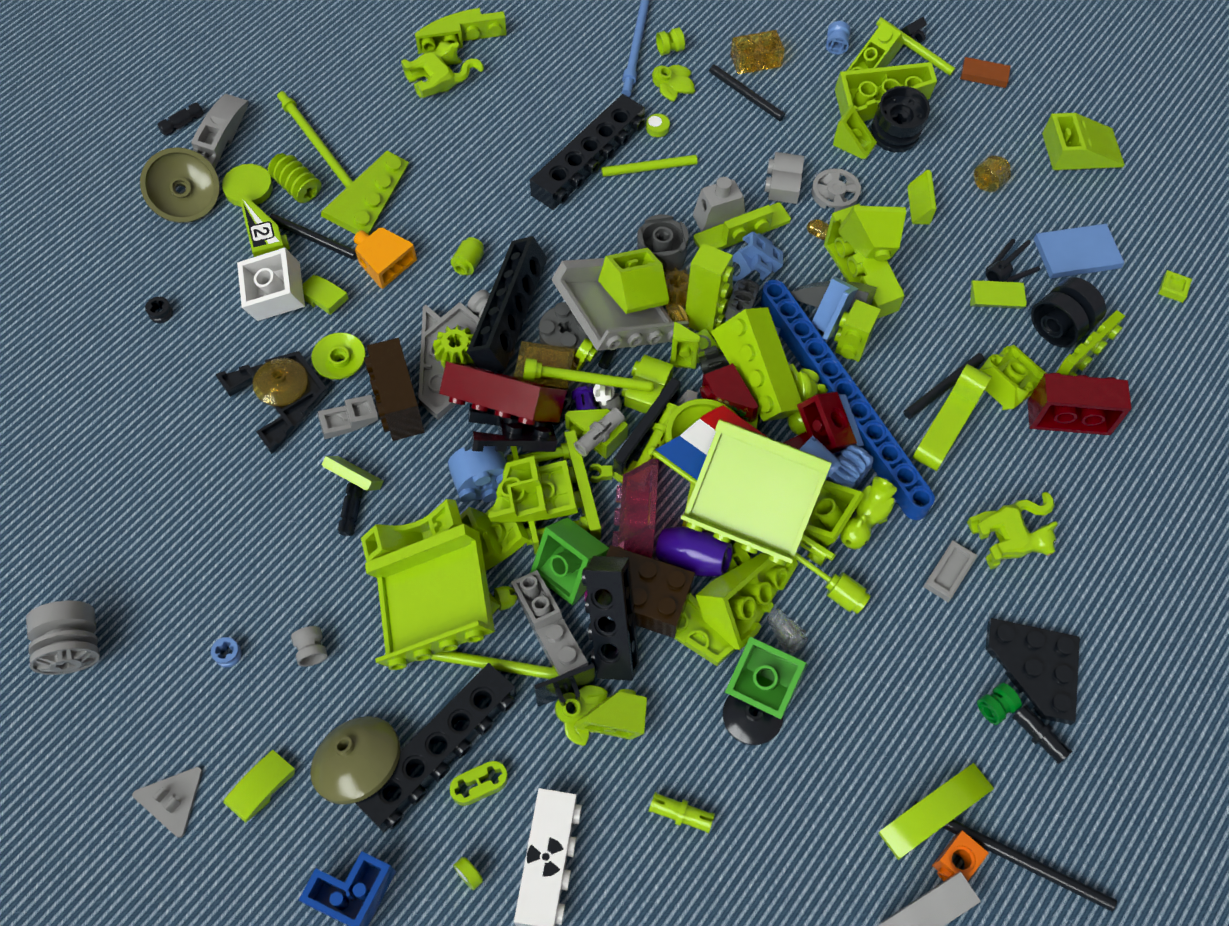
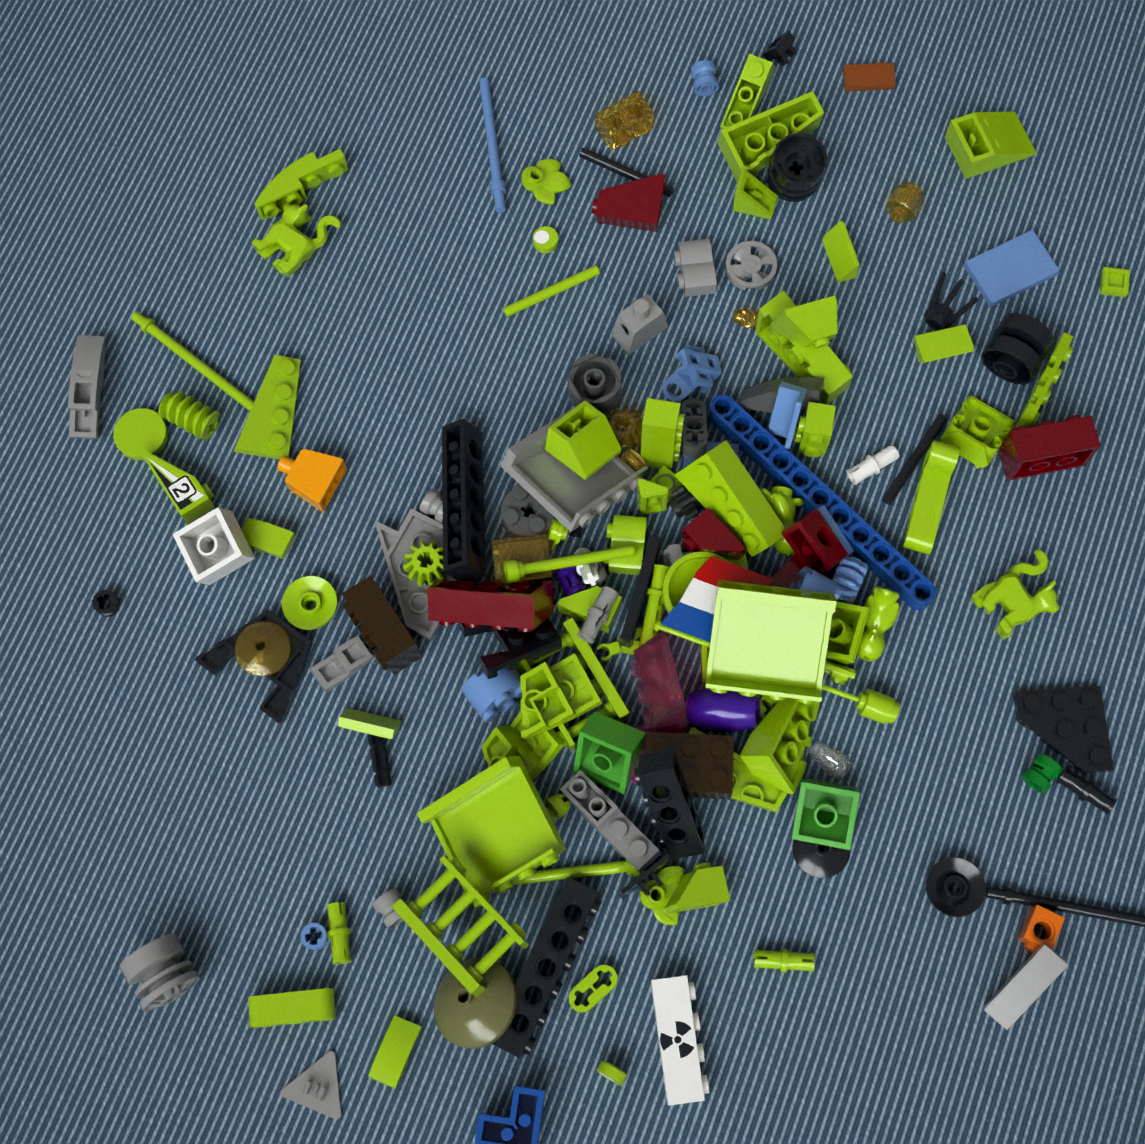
camera: 10 degrees left, 10 degrees up
(176, 712) = (291, 1008): none -> lime beam
(179, 168) = (95, 459): olive dish -> none
(180, 119) = (38, 375): black axle -> none
(249, 655) = (338, 933): none -> lime pin
(314, 237) = (232, 474): black bar -> none
(334, 673) = (451, 954): none -> lime fence
(389, 538) = (459, 768): lime arch -> none
(467, 256) = (400, 453): lime brick -> none
(587, 152) = (505, 236): black brick -> none
(670, 41) = (528, 133): lime wheel -> none
(733, 230) = (668, 339): lime bracket -> none
(743, 113) = (631, 204): none -> dark red slope
(890, 779) = (969, 883): none -> black dish
(902, 378) = (872, 464): none -> white axle
(922, 51) = (791, 67): lime bar -> none
(935, 811) = (1010, 890): lime slope -> none
(950, 571) = (966, 653): light grey tile -> none

